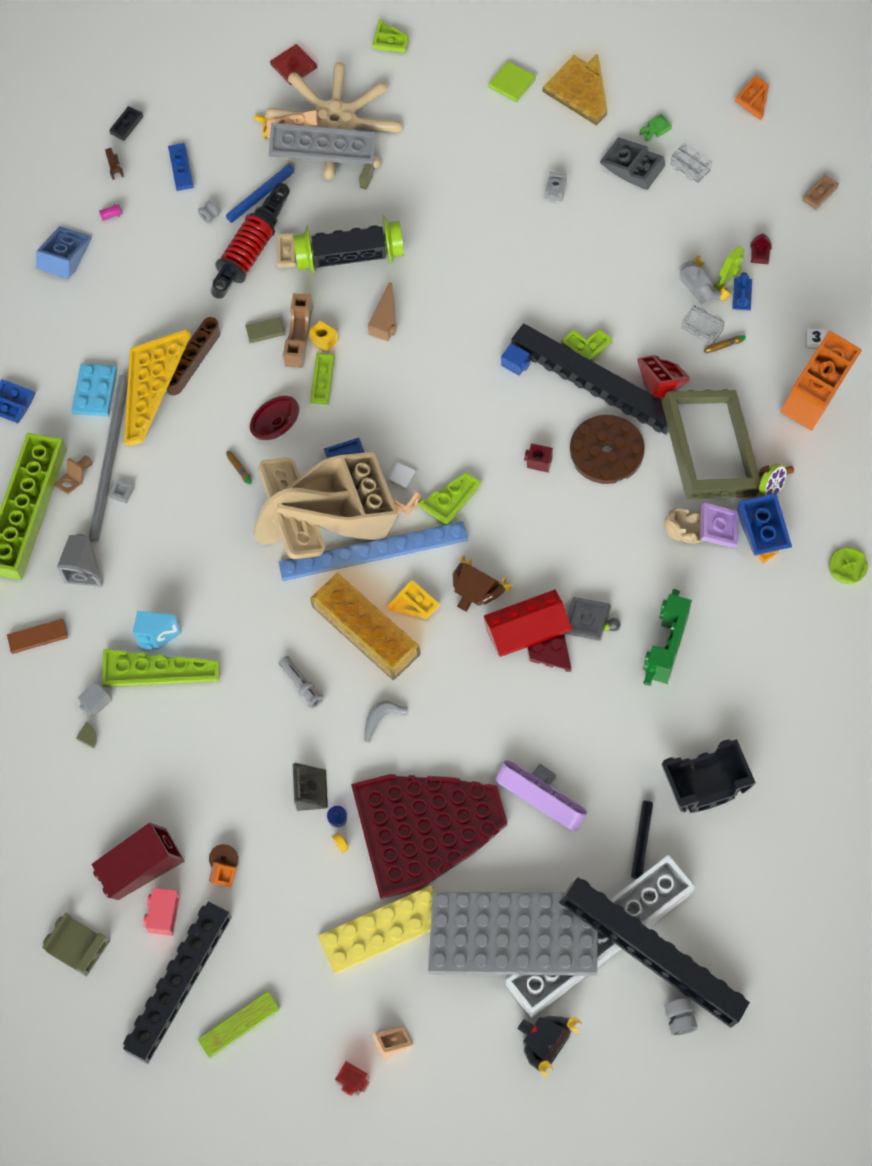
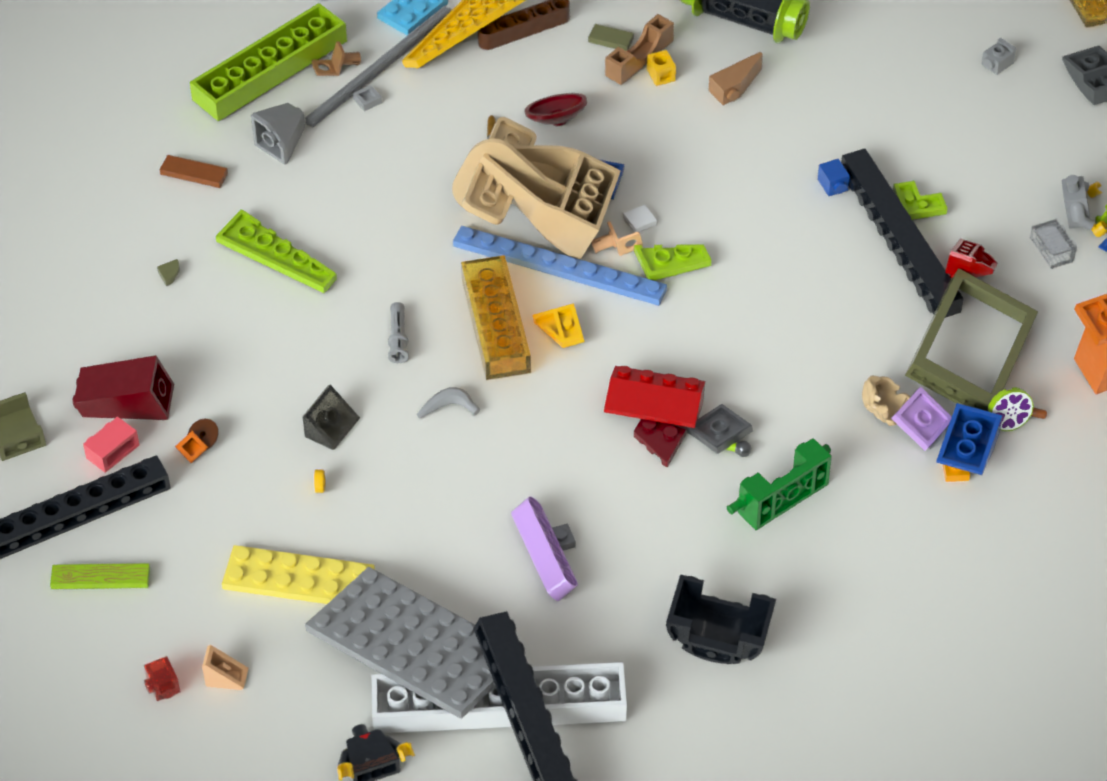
camera: 30 degrees right, 15 degrees down
(93, 699) = (198, 244): light grey brick -> none
(155, 629) = (299, 215): medium azure slope -> none
(322, 379) = (631, 103): lime tile -> none
(337, 816) = (336, 460): clear blue tile -> none
(424, 826) = (410, 513): dark red wing -> none
(475, 585) = (632, 341): reddish brown torso -> none
(539, 464) = (787, 270): dark red brick -> none
(610, 466) = (879, 315): reddish brown plate -> none
(642, 839) = (620, 640): black axle -> none
(723, 344) = (1064, 272): pearl gold piece -> none
(848, 565) = (1034, 529): lime tile -> none

